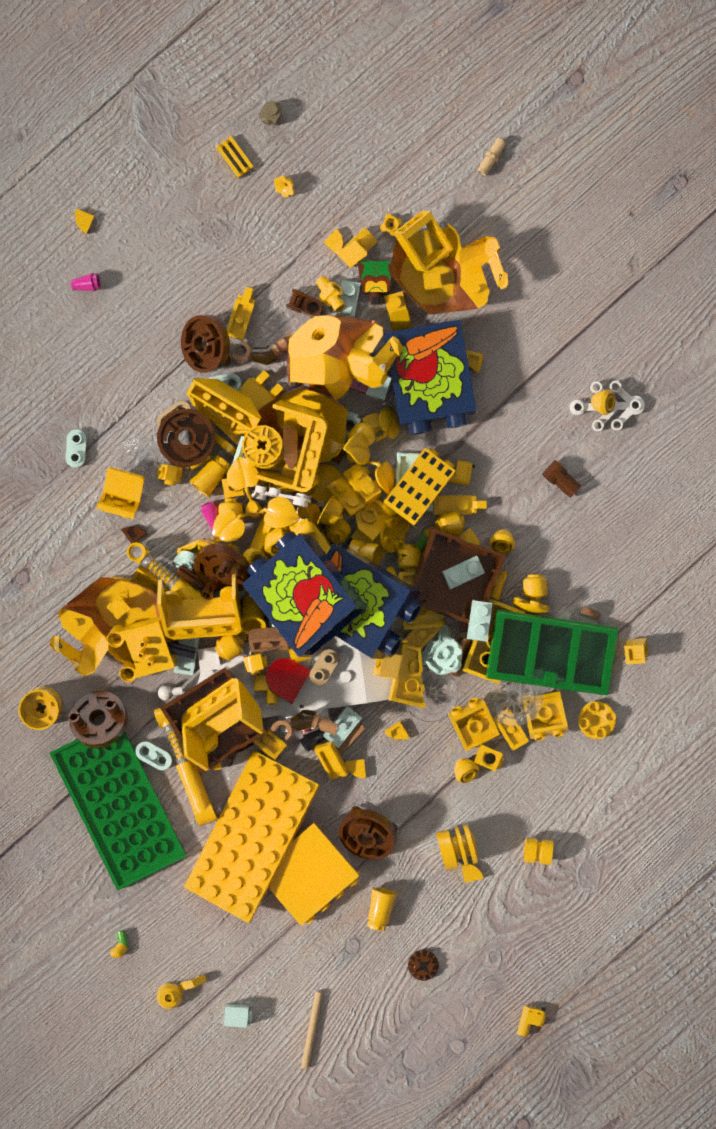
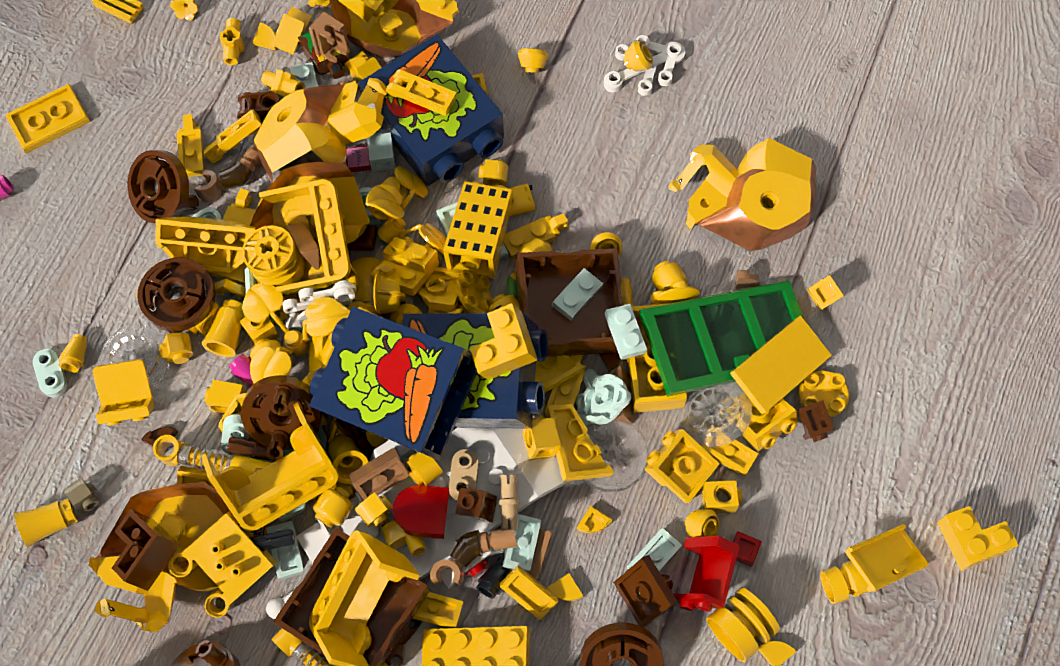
camera: 25 degrees left, 20 degrees down
(37, 559) = (45, 521): none -> yellow plant
(67, 551) = (82, 495): none -> dark tan plate
(98, 443) = (74, 354): none -> yellow cone
(99, 622) = (146, 550): none -> reddish brown brick
(145, 235) = (47, 118): none -> yellow tile
(189, 527) = (221, 394): none -> yellow brick
(276, 322) = (232, 136): none -> yellow hinge
(303, 245) = (232, 41): none -> yellow axle
(322, 692) = (476, 504): none -> reddish brown bracket
(345, 699) = (509, 502): none -> tan pin
(379, 281) = (329, 36): none -> medium nougat hinge
(391, 611) = (509, 348): none -> yellow brick
(406, 797) = (646, 591): none -> reddish brown tile
(424, 775) = (660, 549): none -> light aqua plate
(425, 368) = (422, 92): none -> yellow plate
(452, 443) = (494, 172): none -> yellow plate
(452, 808) = (711, 574): none -> red panel
(486, 797) = (748, 548): none -> red tile
(526, 361) = (532, 59): none -> yellow cone
(558, 476) = (629, 154): reddish brown piece -> none
(576, 690) = (780, 364): none -> yellow tile
(578, 738) = (815, 421): none -> reddish brown bracket
(578, 848) = (884, 555): none -> yellow door
(626, 555) = (758, 201): none -> yellow piece
(635, 869) = (972, 544): none -> yellow brick

